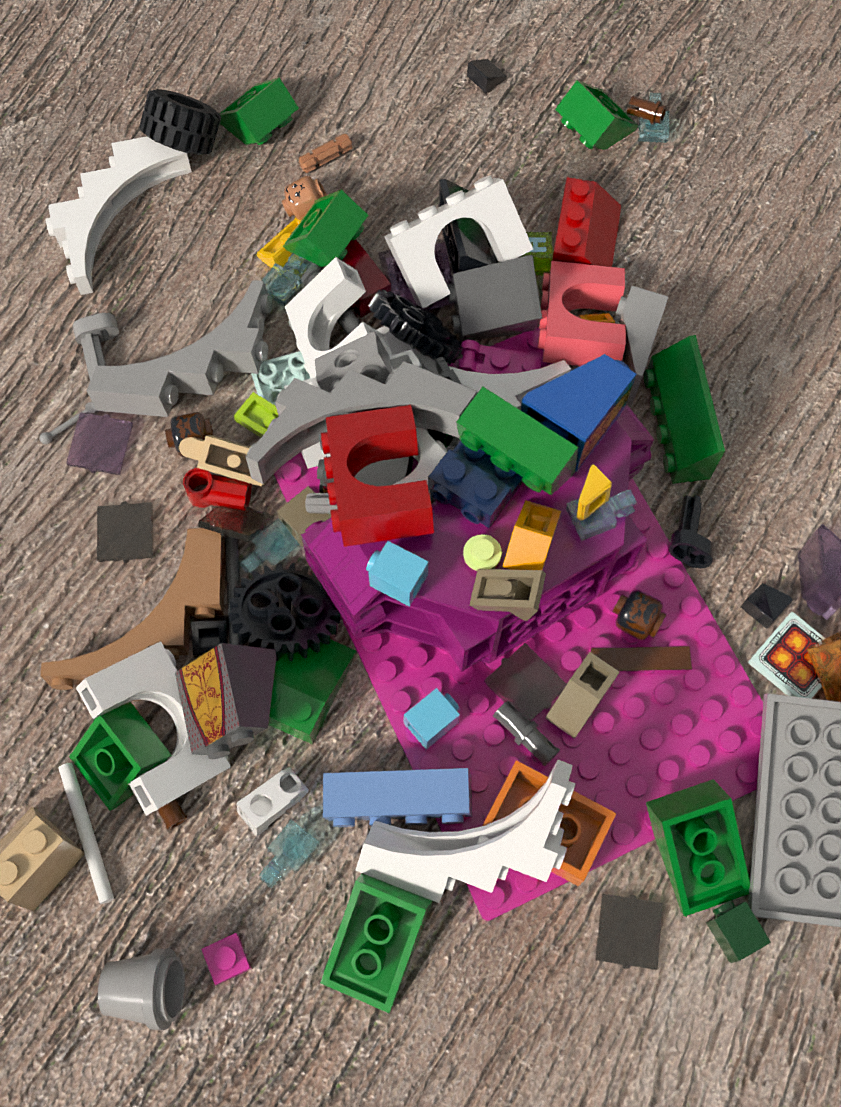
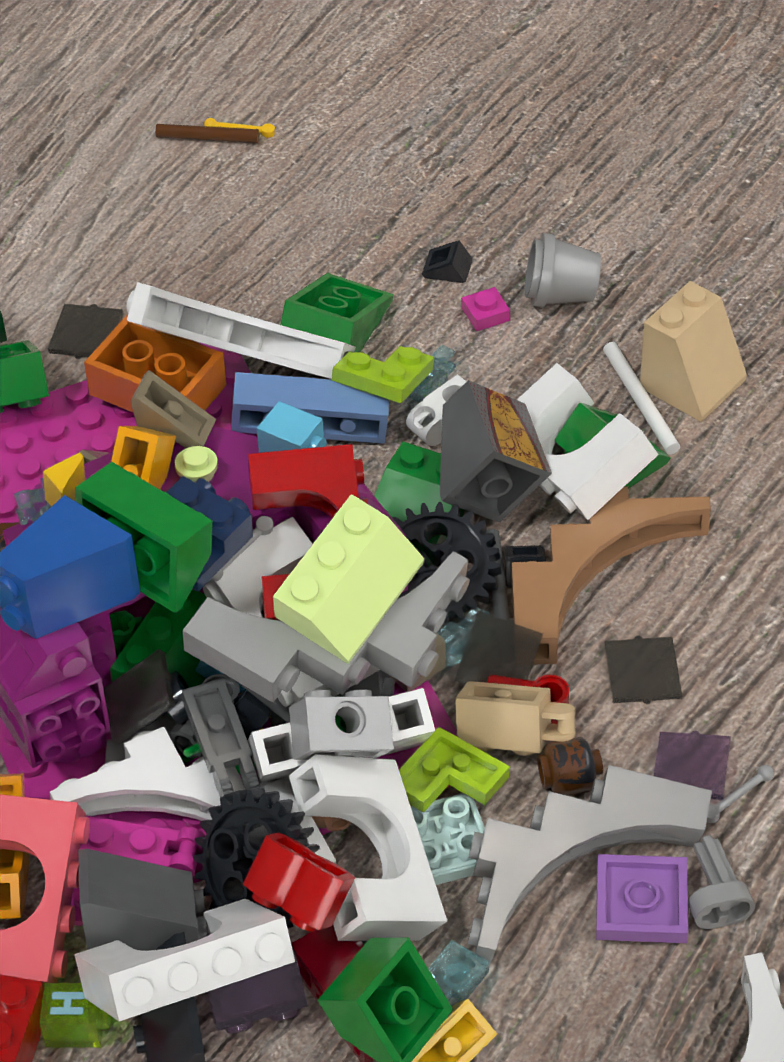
camera: 175 degrees left, 20 degrees down
(148, 332) = (642, 898): none -> medium lavender plate
(263, 1032) = (448, 263): none -> black slope
(324, 815) = (388, 379): none -> lime plate
(348, 414) = (347, 579): none -> yellowish green slope
(380, 275) = (298, 881): none -> red brick

